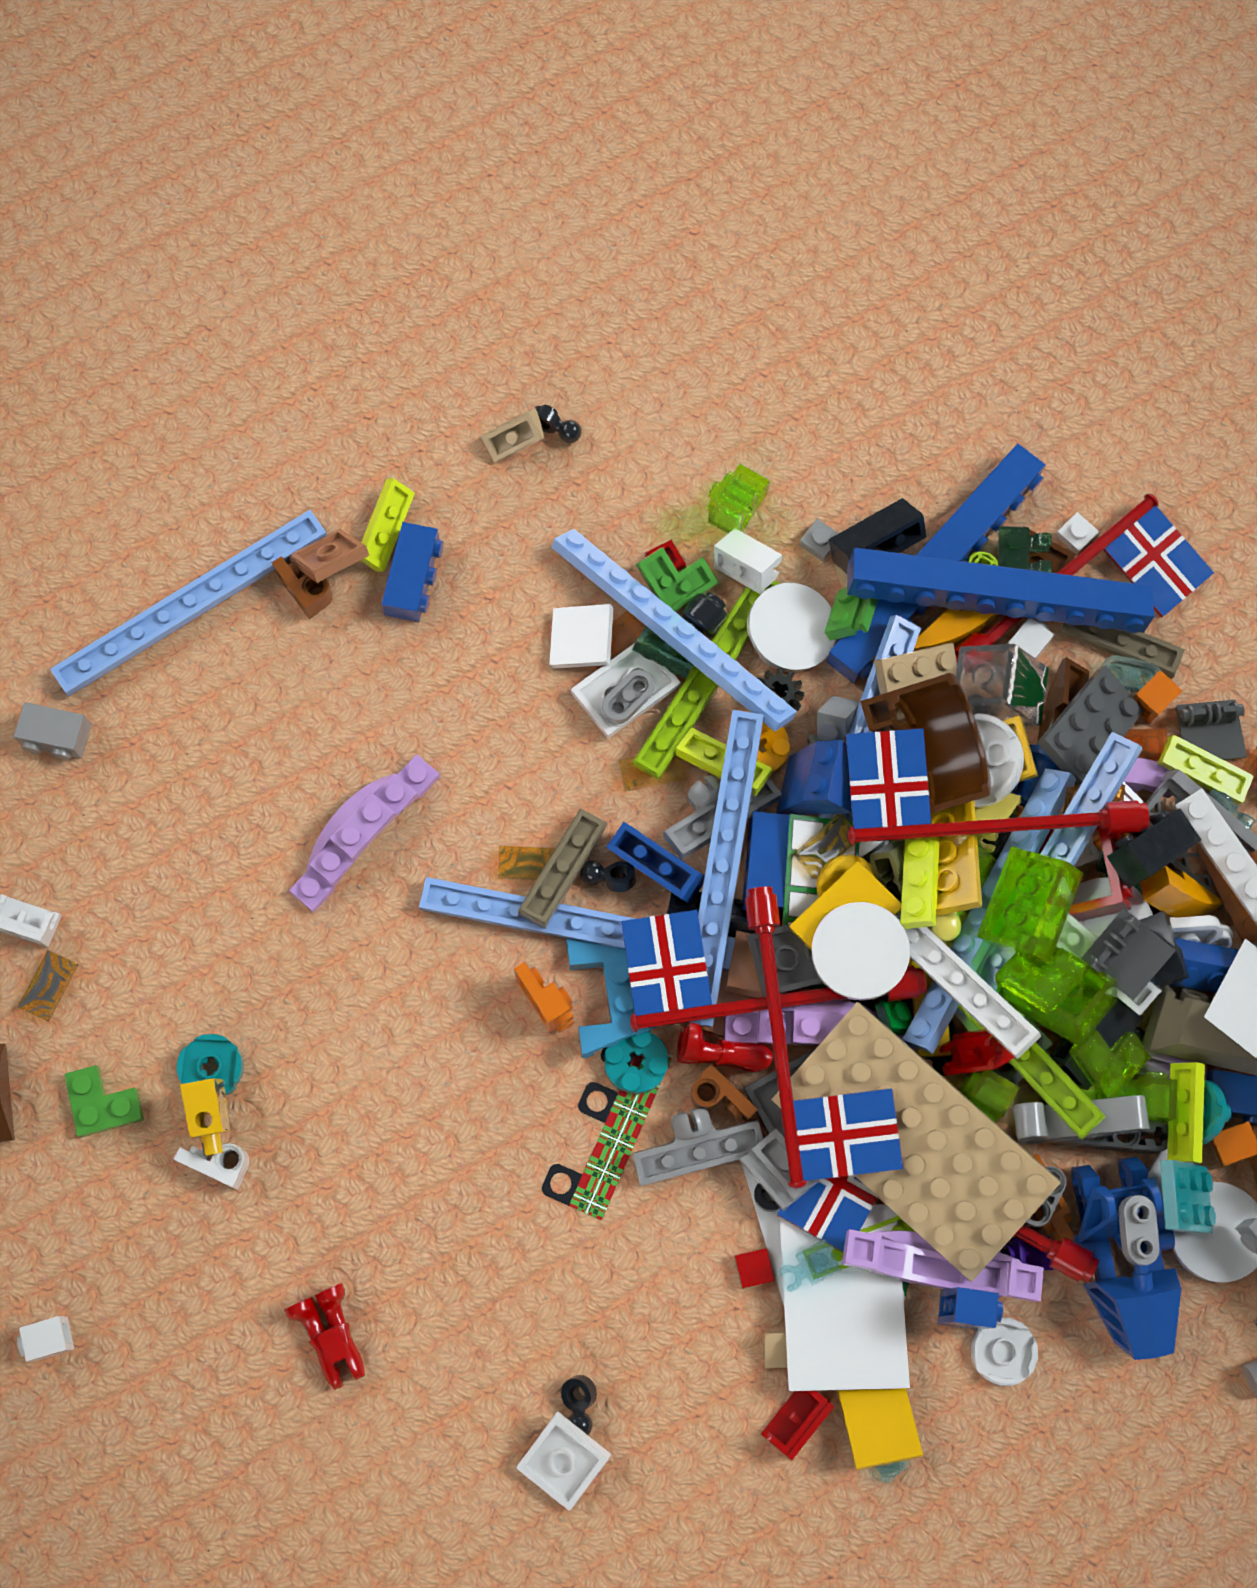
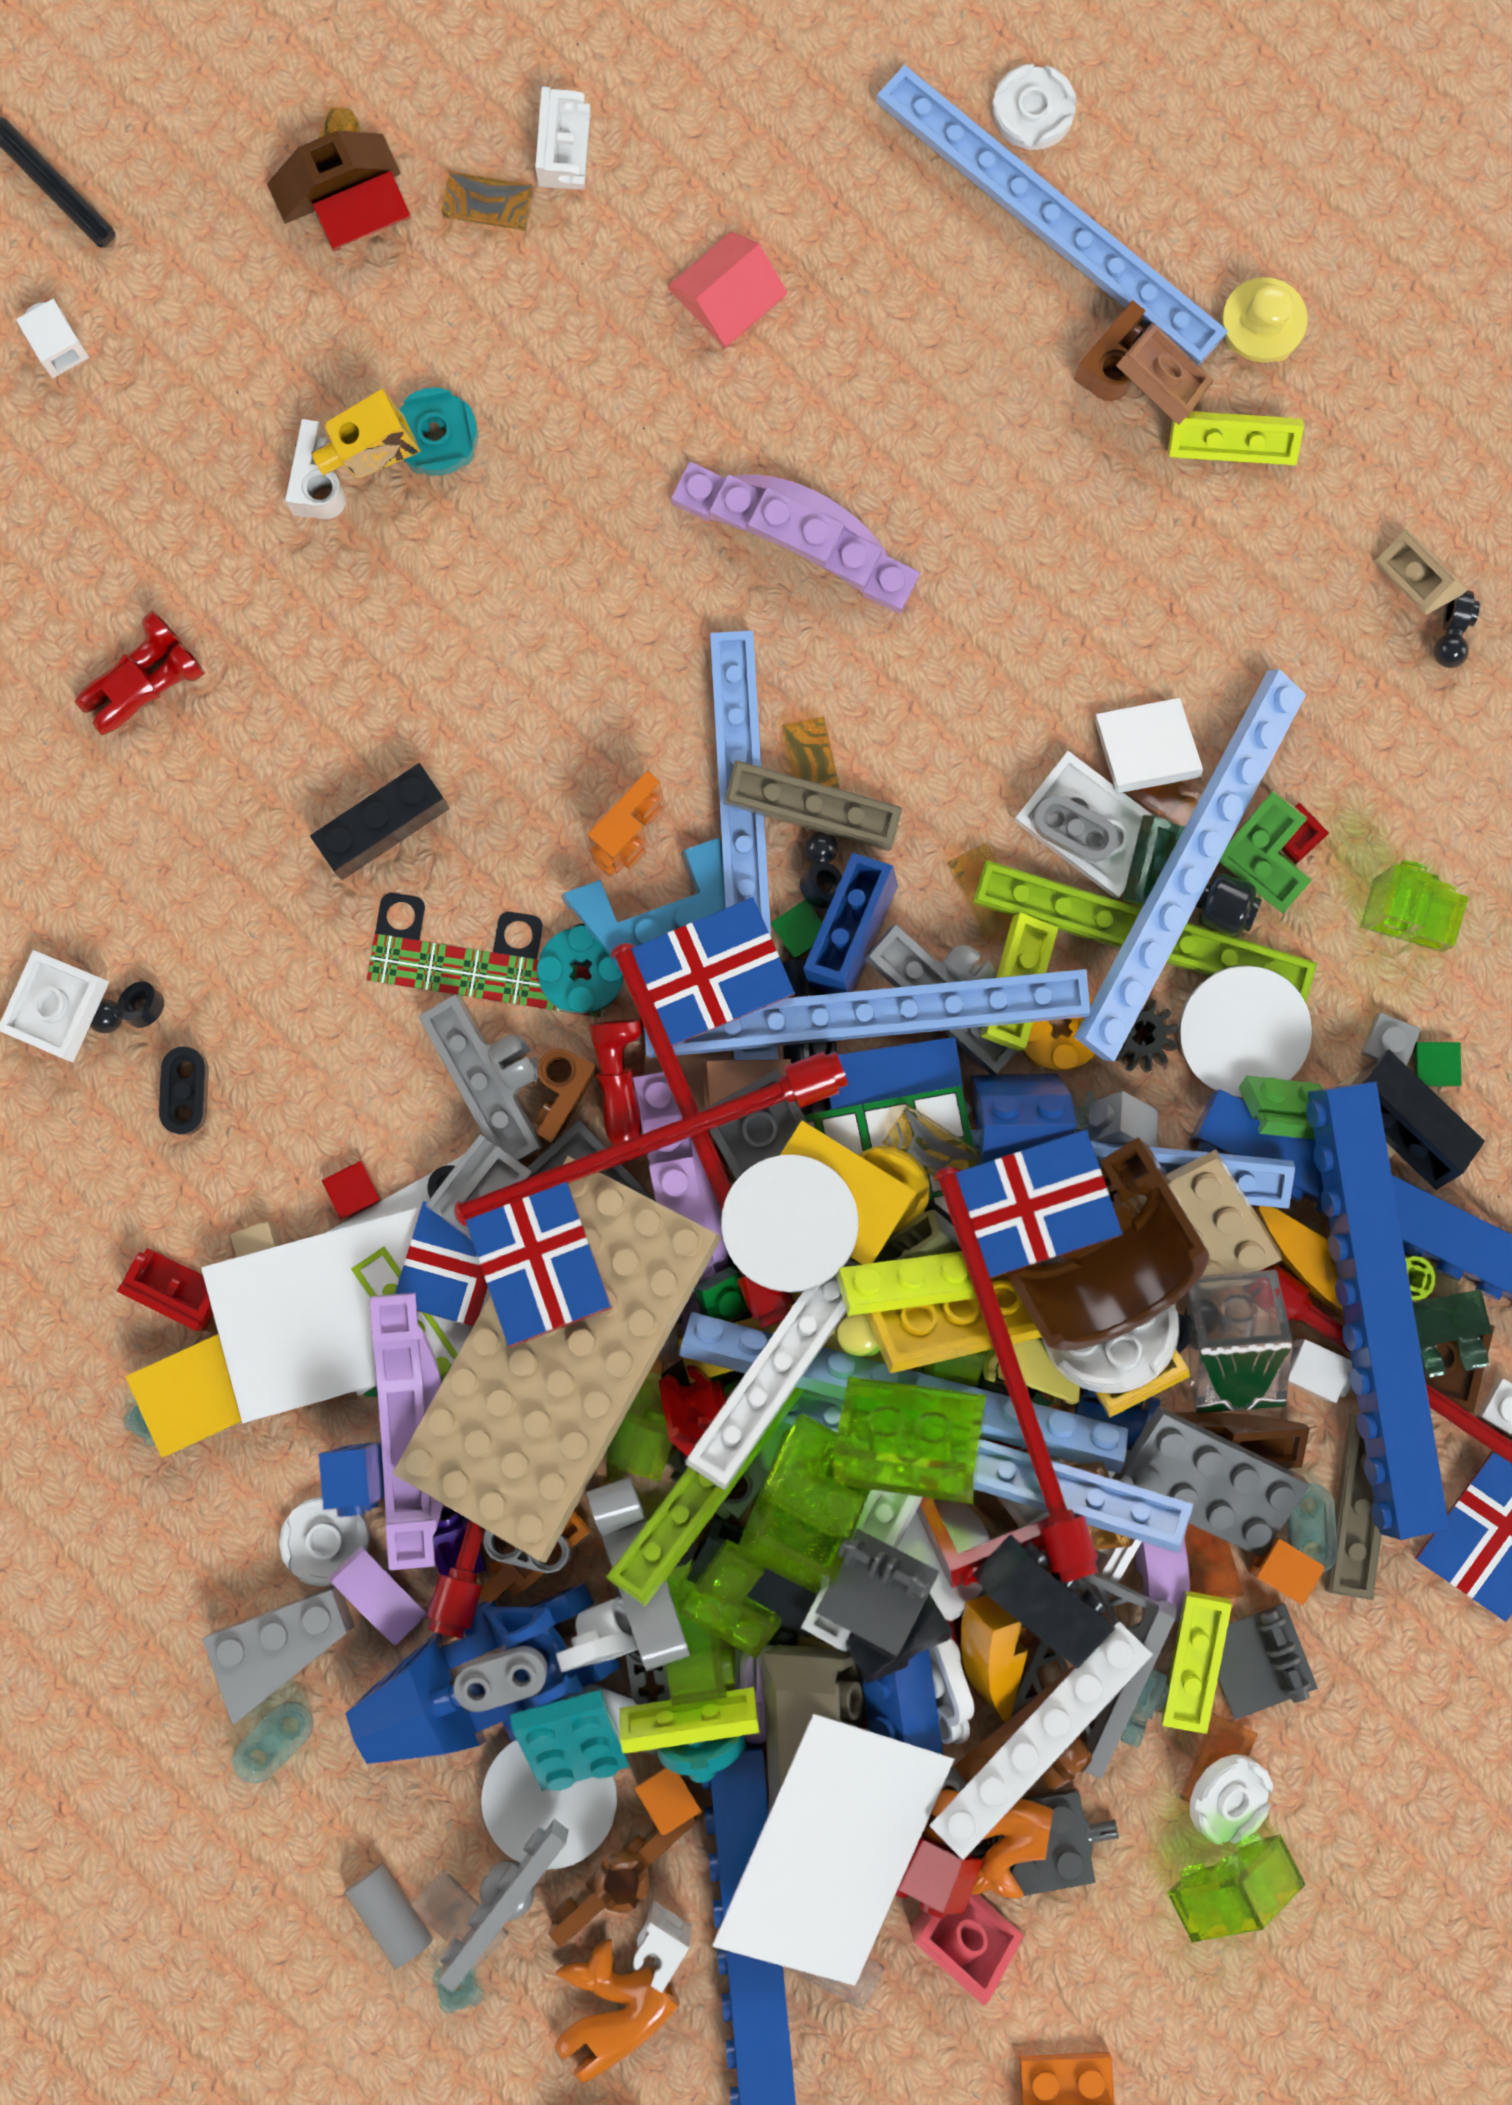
camera: 75 degrees right, 10 degrees up
(28, 1078) = (361, 210): none -> red hinge
(52, 731) = (821, 96): light grey brick -> none
(93, 1109) = (345, 310): bright green plate -> none
(107, 593) = (1034, 107): none -> white tile
(169, 831) = (729, 287): none -> coral slope
(308, 485) = (1264, 320): none -> light yellow plate
(412, 572) = (1177, 492): blue brick -> none
(490, 1177) = (380, 821): none -> black brick
(646, 900) = (797, 929): none -> green tile
(651, 1376) = (181, 1091): none -> black plate
(746, 560) = (1325, 943): white hinge -> none
(815, 1264) = (367, 1262): clear light blue plate -> none
(842, 514) = (1438, 1063): none -> green tile
(1053, 1319) = (377, 1596): none -> lavender slope
(1074, 1404) = (272, 1647): none -> light grey wedge
(1117, 1157) = (602, 1636): none -> white plate
(1142, 1423) = (274, 1741): none -> clear light blue plate

